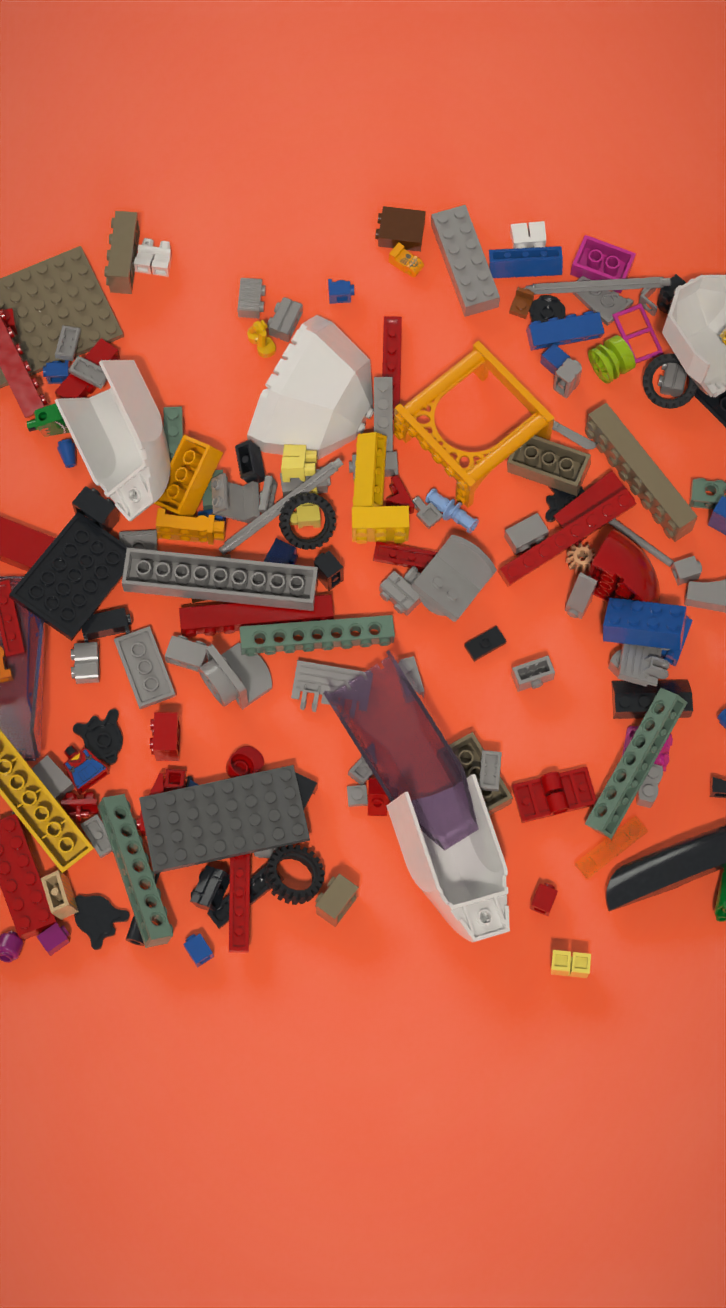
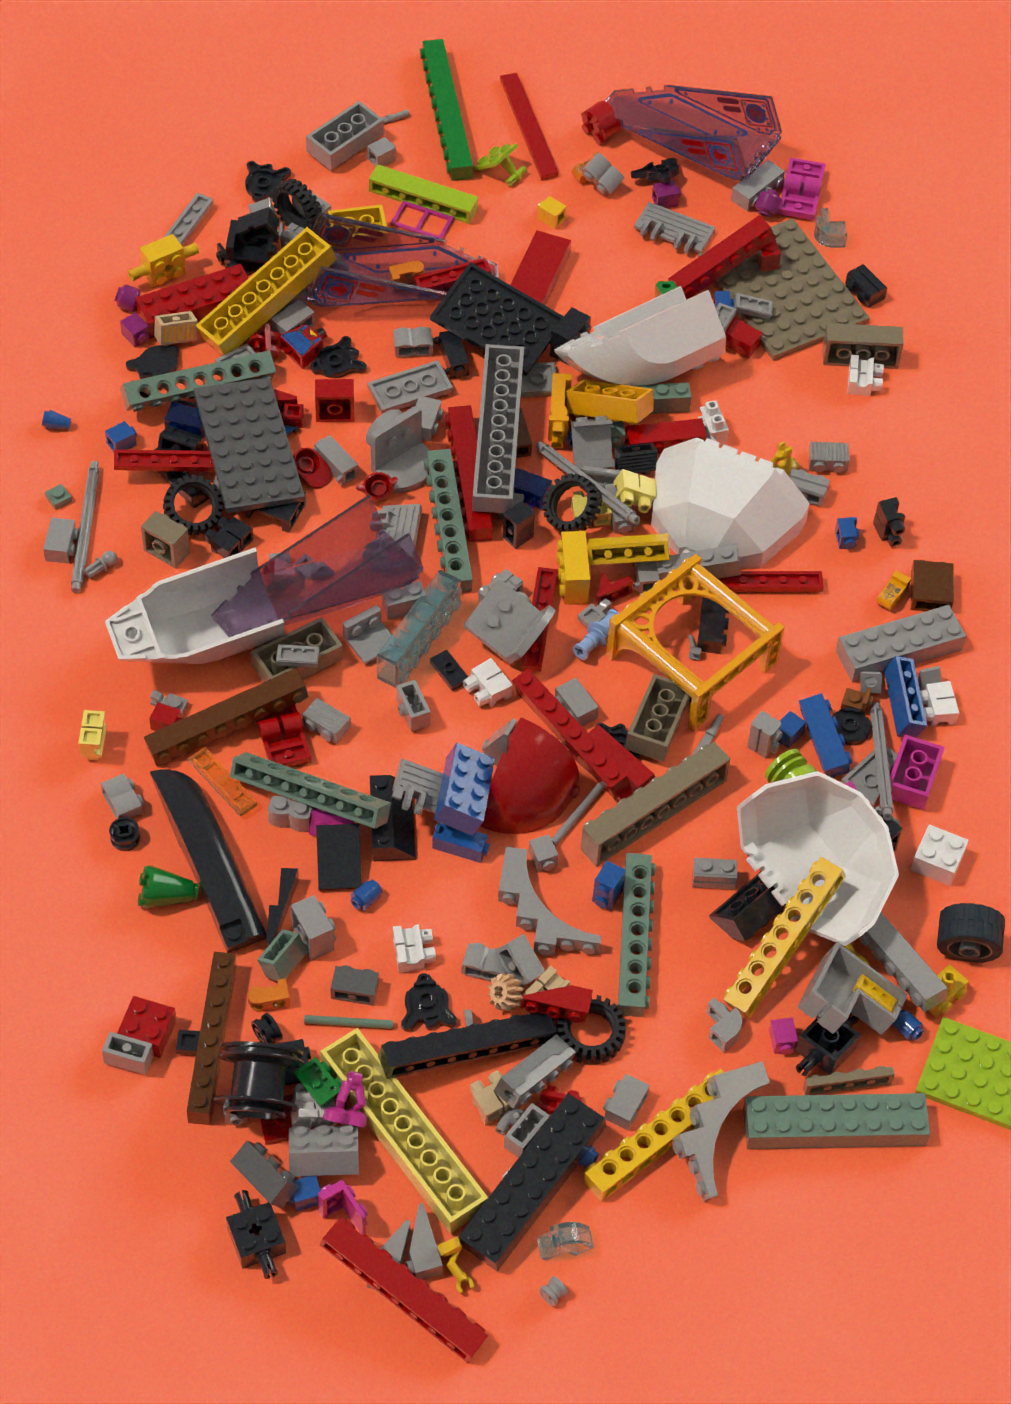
camera: 85 degrees right, 15 degrees down
(41, 244) = (865, 285): none -> black brick
(170, 1018) = (54, 420): none -> blue cone
(179, 886) = (184, 418): none -> clear blue brick
(209, 389) = (714, 422): none -> white hips
(220, 432) = (665, 433): none -> red brick
(235, 738) = (341, 464): none -> light grey brick
(267, 1013) = (58, 496): none -> sand green plate
(273, 698) = (378, 486): none -> red hair
(307, 983) = (85, 525): none -> light grey piece
(328, 1006) = (60, 540): none -> light grey piece
(331, 840) = (231, 537): none -> black hips
(334, 253) = (889, 522): none -> black hips
(350, 959) = (109, 559): none -> light grey axle
(447, 415) = (712, 627): none -> black brick
(449, 664) = (419, 629): none -> clear light blue brick
(451, 711) = (366, 634): none -> light grey bracket
(467, 433) = (694, 651): none -> light grey hand
(500, 240) = (929, 676): none -> light grey slope
(503, 607) = (489, 682): none -> white hips
(506, 288) = (871, 680): none -> light grey bracket
(523, 896) = (171, 700): none -> light grey plate
(545, 753) = (326, 721): none -> light grey brick
(548, 840) = (226, 717): none -> reddish brown brick
(632, 938) = (121, 796): none -> light grey brick
(670, 935) = (124, 834): none -> black wheel
(683, 255) = (939, 855): none -> white brick
(696, 743) = (338, 856): none -> black tile
(705, 432) = (714, 873): none -> light grey brick

